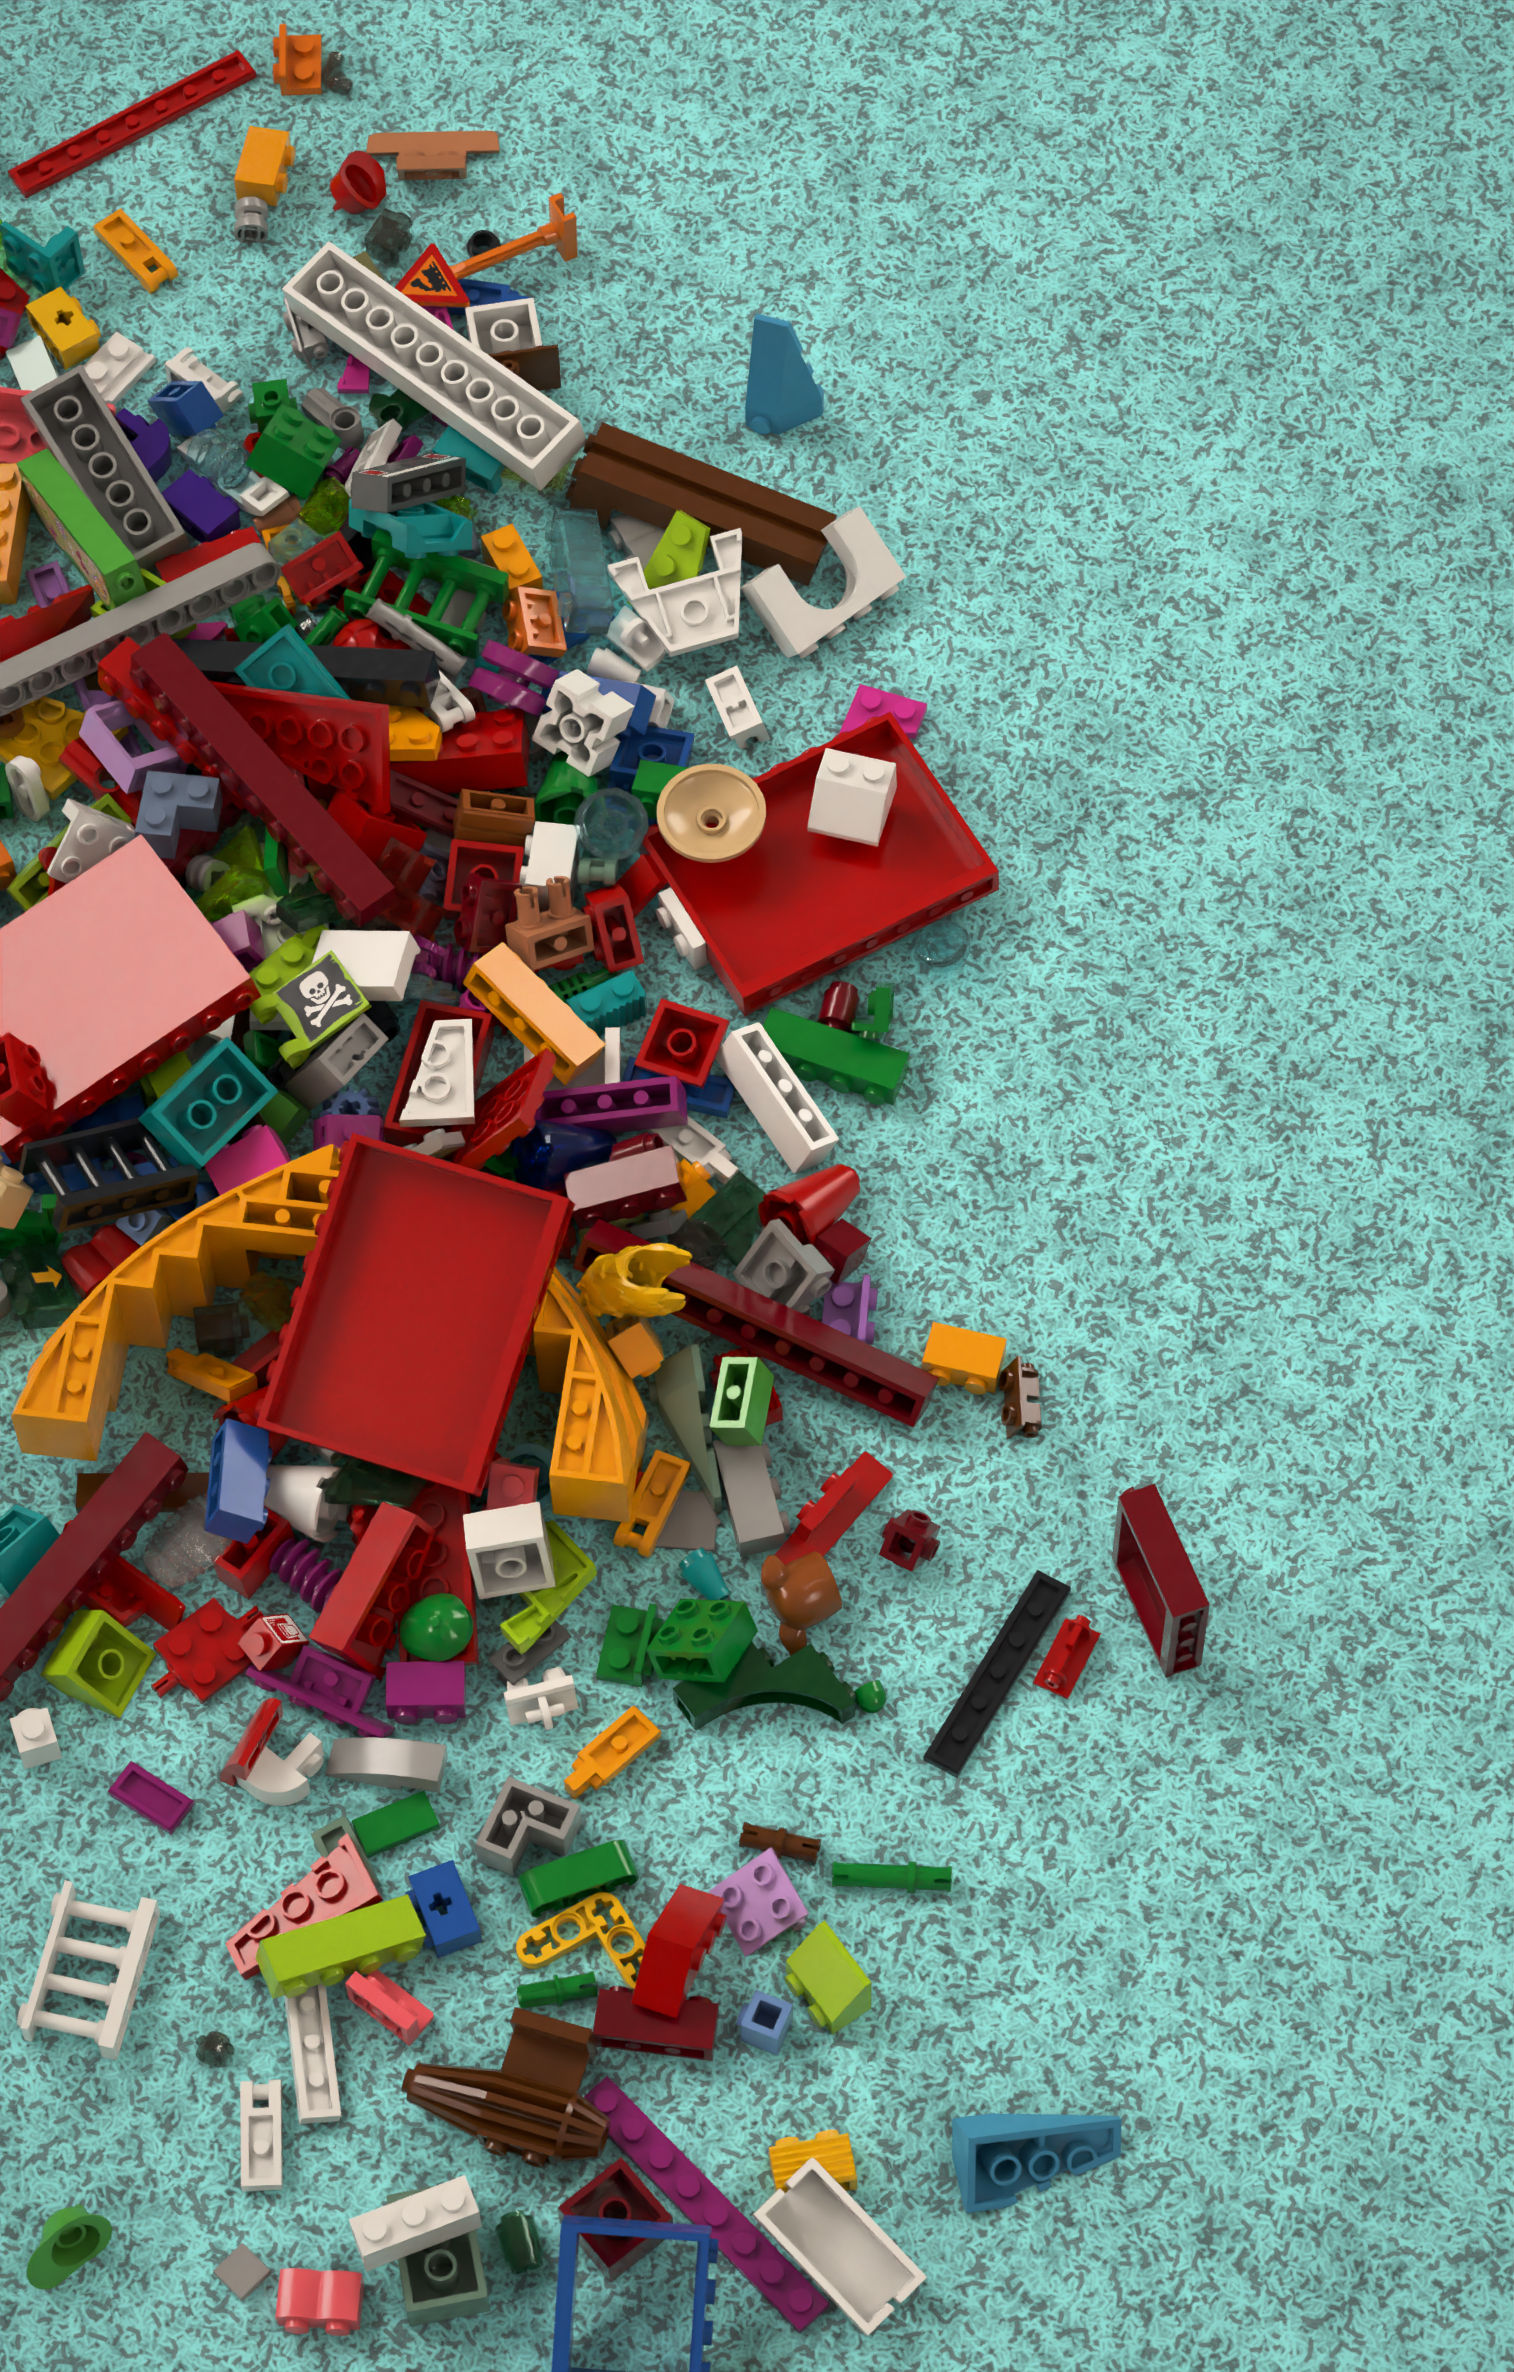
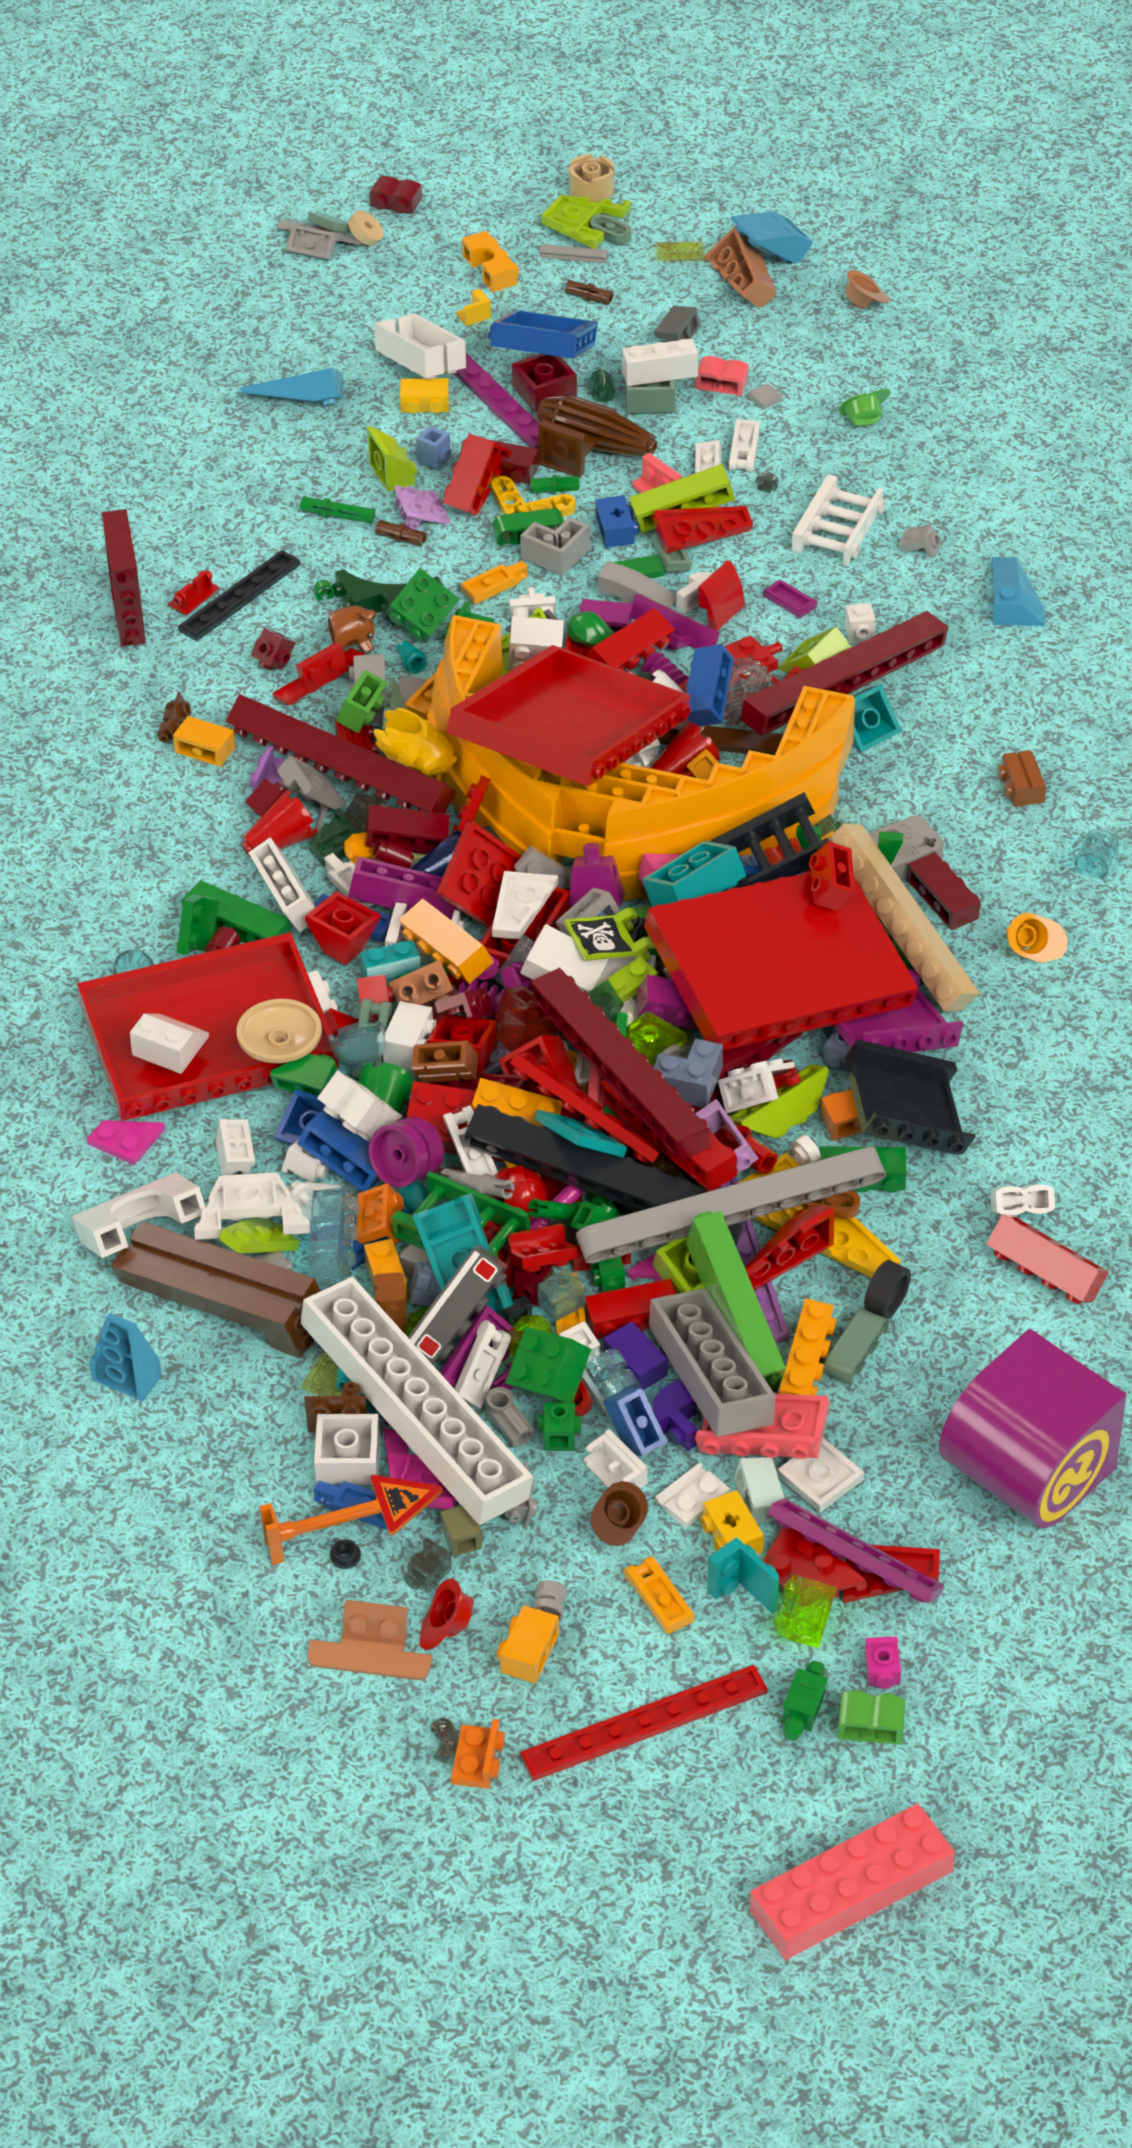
camera: 170 degrees left, 15 degrees down
(190, 313) = (619, 1513): none -> reddish brown piece
(273, 1642) = (696, 638): red brick -> none
(492, 503) = (391, 1297): none -> dark orange brick

